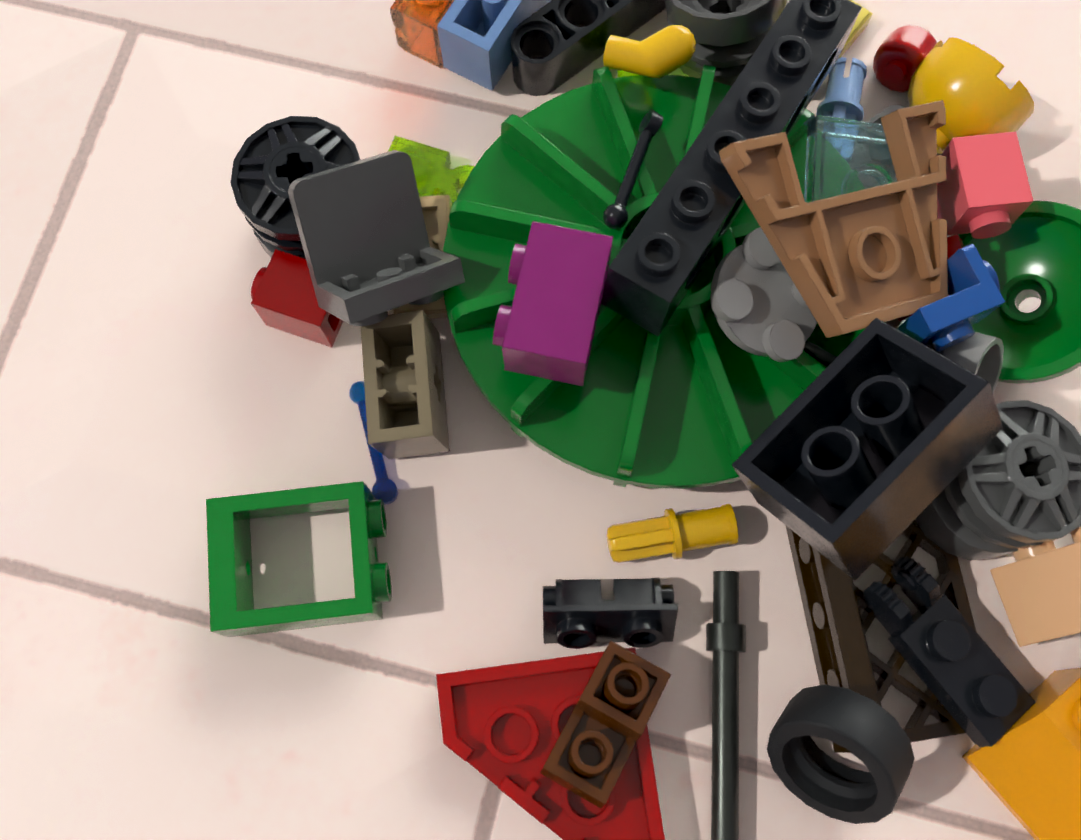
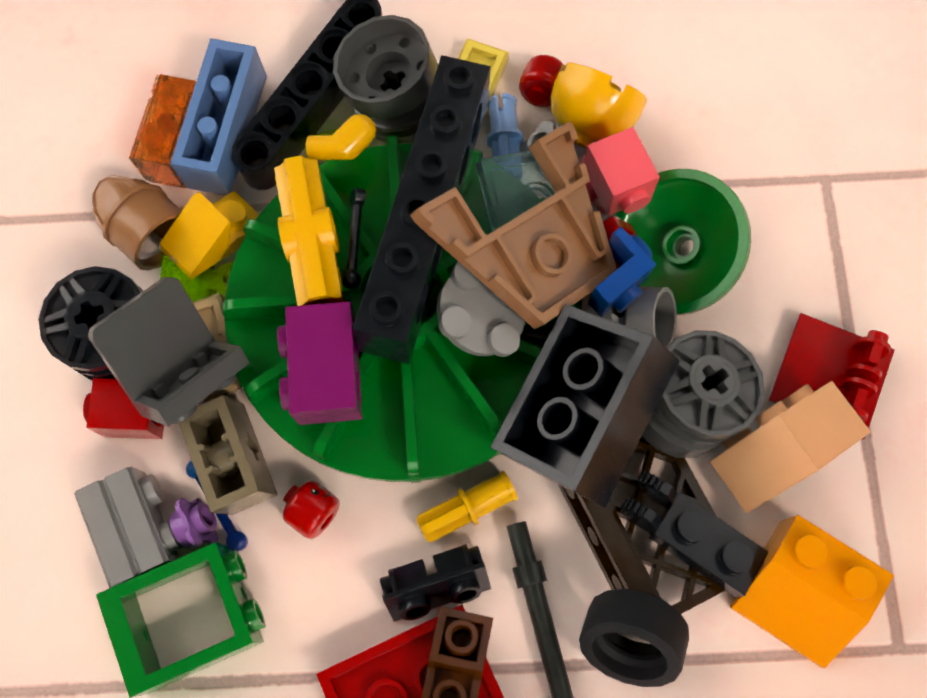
camera: 15 degrees left, 0 degrees up
(265, 430) = (127, 524): none -> light grey brick
(341, 453) = (193, 523): none -> medium lavender plate
(377, 71) = (129, 212): none -> medium nougat helmet
(453, 120) = (206, 232): none -> yellow slope
(483, 478) = (309, 508): none -> red piece
(581, 142) = (308, 232): none -> yellow piece

